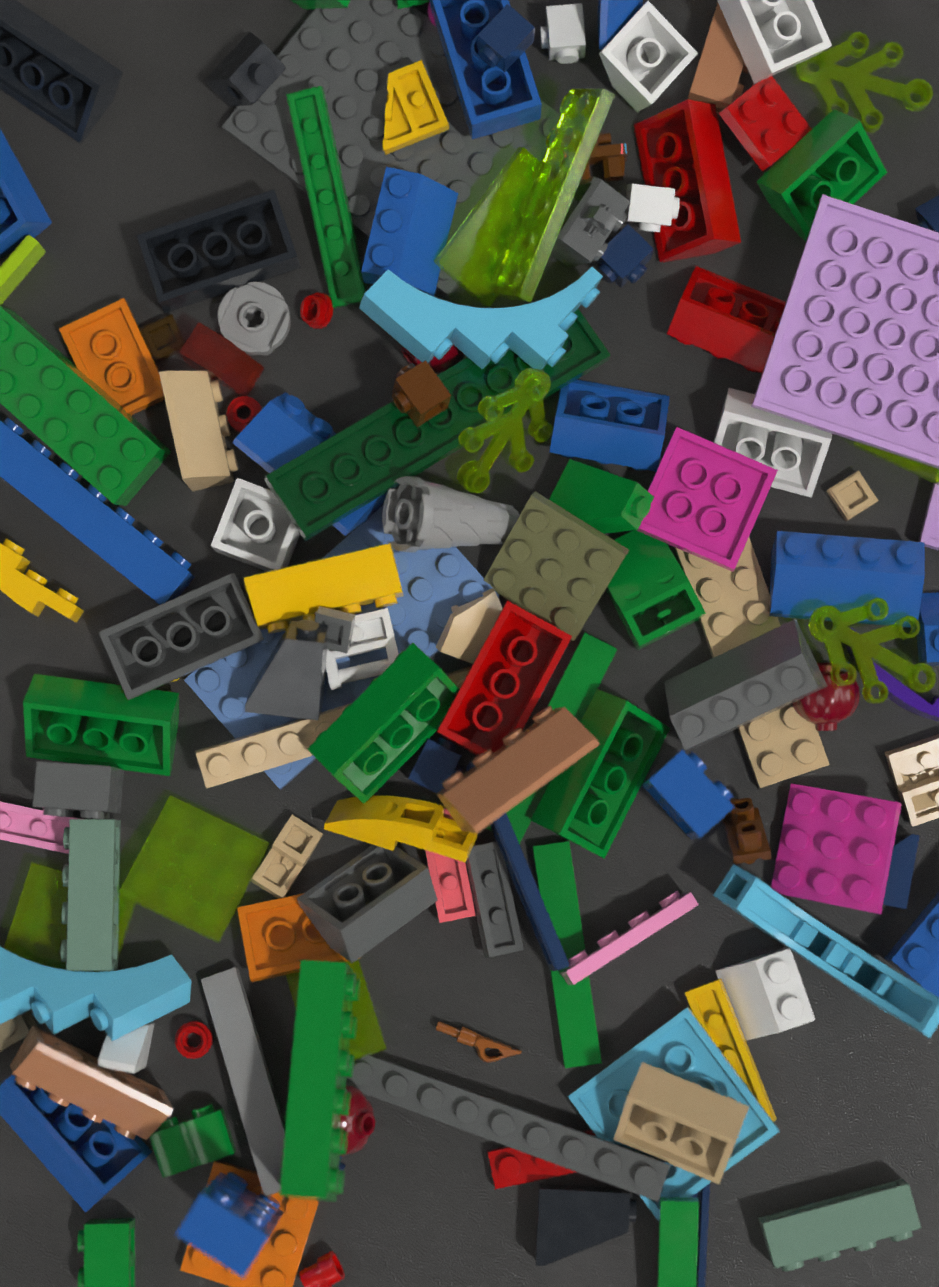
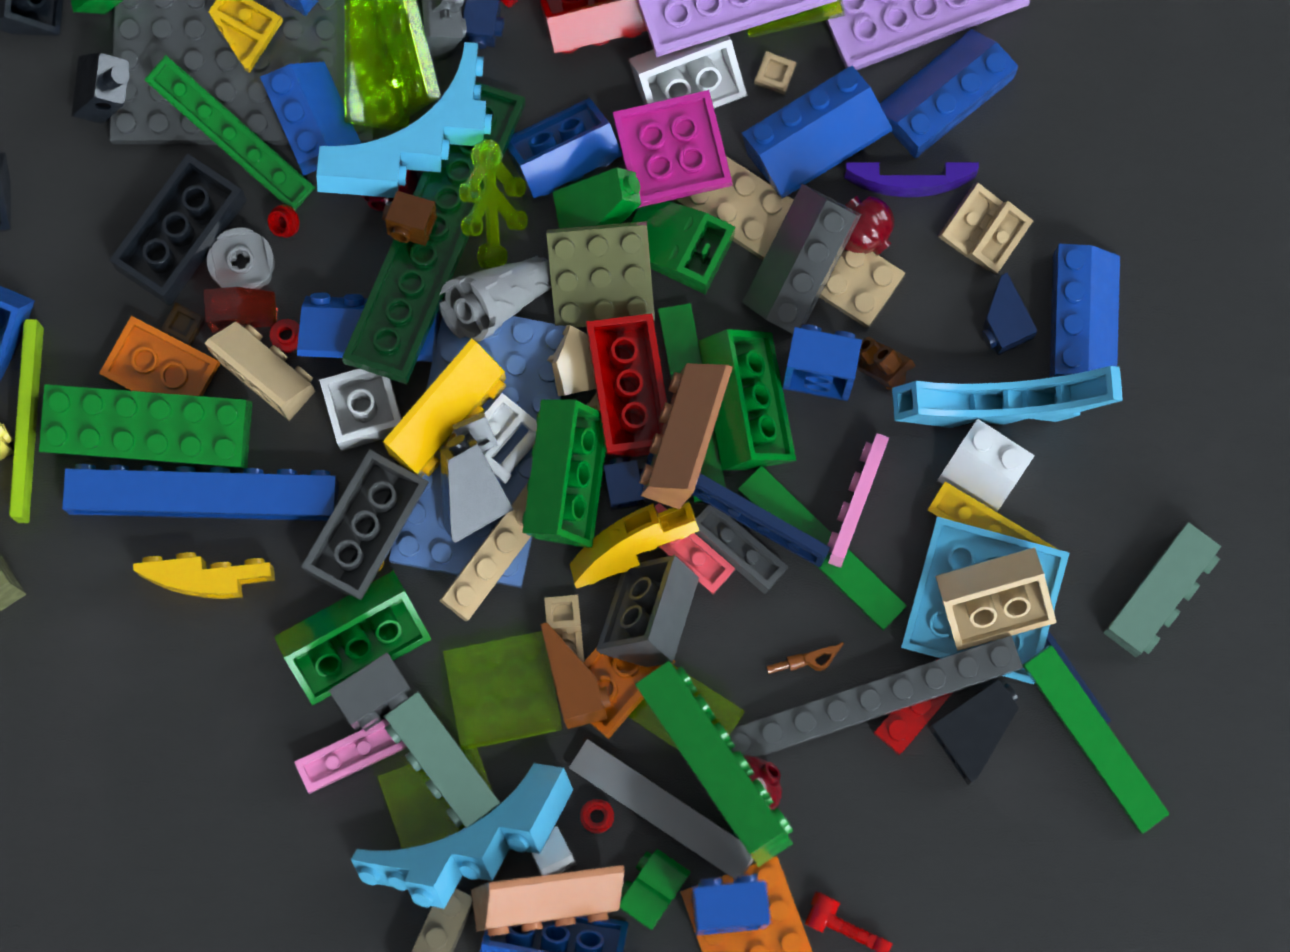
camera: 45 degrees left, 5 degrees down
(254, 920) = (576, 686): none -> dark orange slope
(836, 848) = (955, 325): dark pink plate -> none
(866, 648) = (869, 168): clear neon green plant -> none

